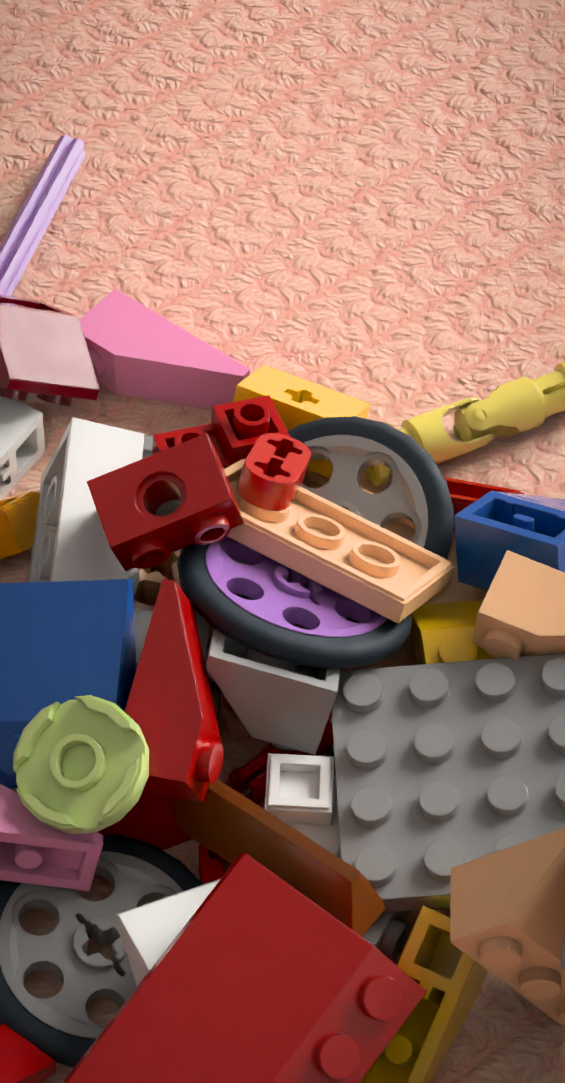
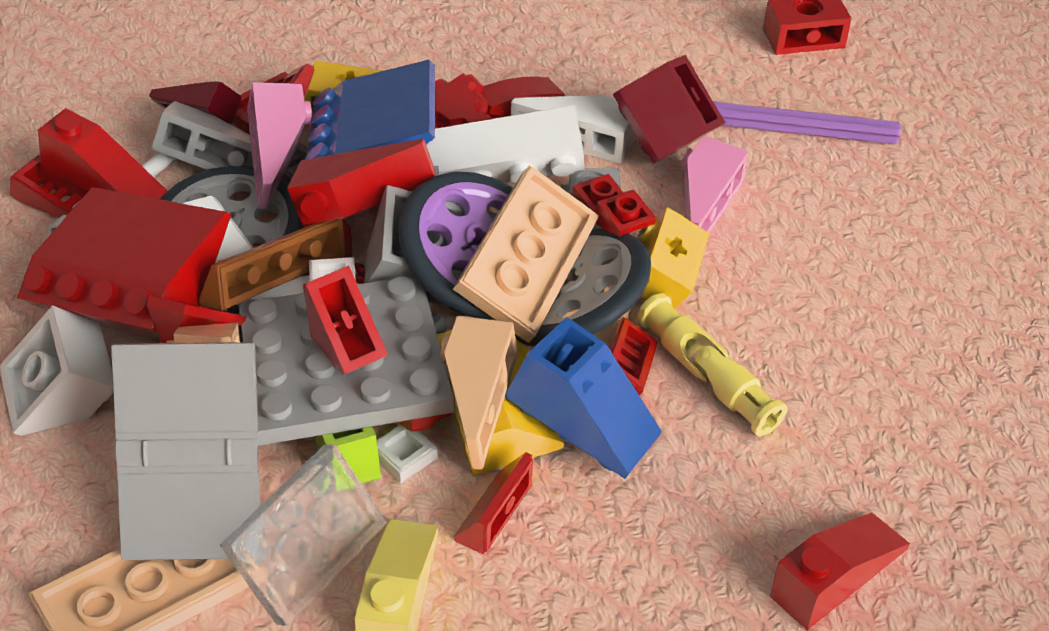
camera: 80 degrees right, 5 degrees down
(81, 765) = (301, 149): yellowish green tile -> none
(133, 494) = (505, 148): red brick -> none
(273, 471) = (575, 217): red beam -> none
(414, 936) = (172, 314): none -> red slope
(477, 742) = (342, 321): none -> red slope

